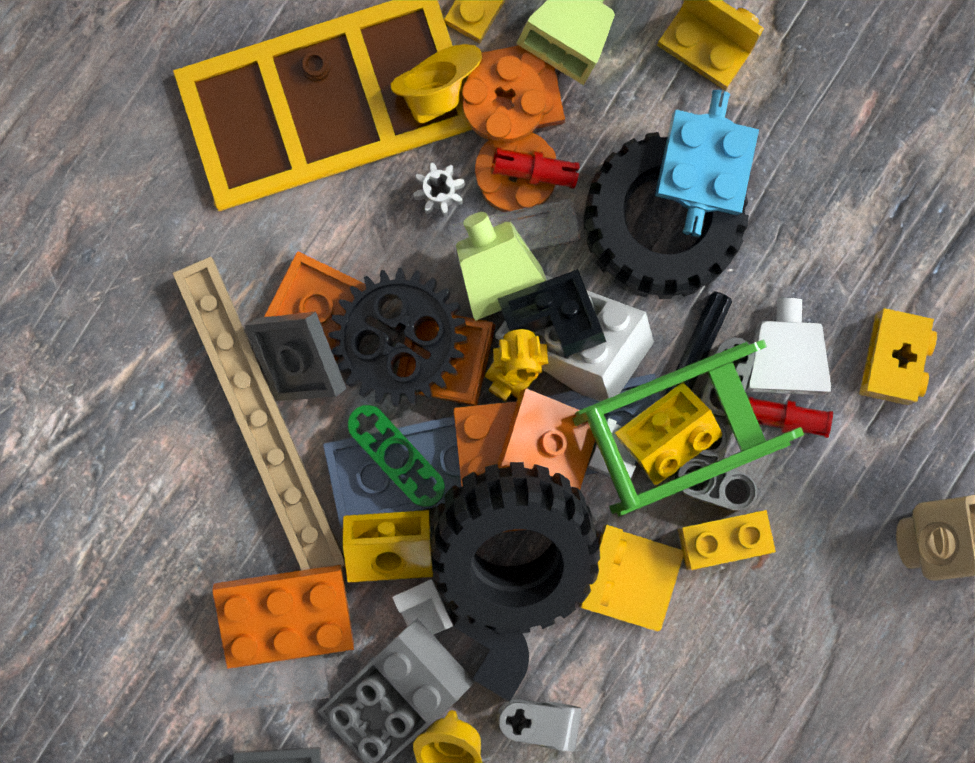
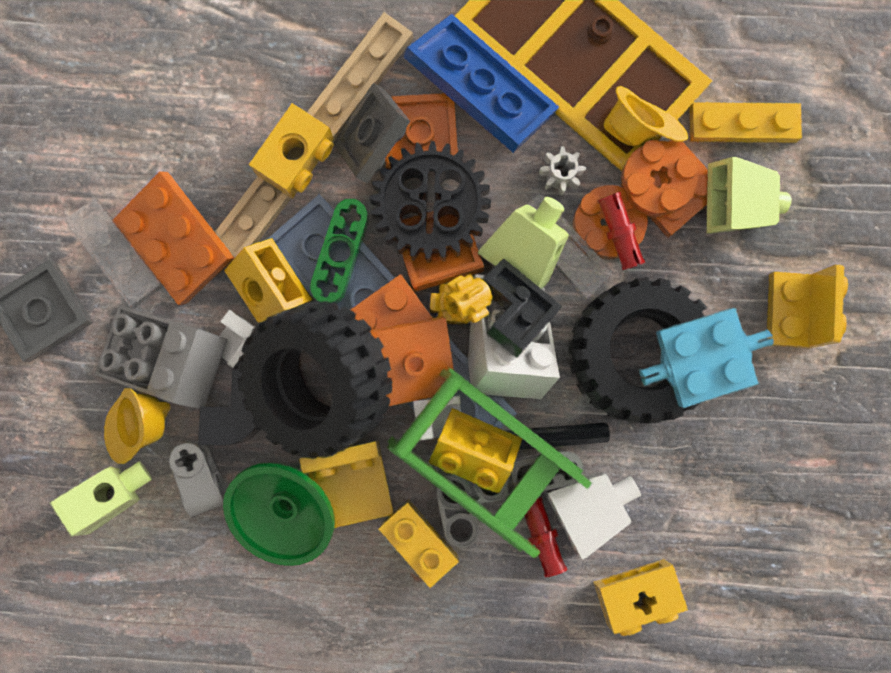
camera: 55 degrees right, 0 degrees up
(250, 428) = (293, 130): none -> yellow brick
(303, 217) = (481, 82): none -> blue plate
(634, 673) = (279, 514): none -> green dish

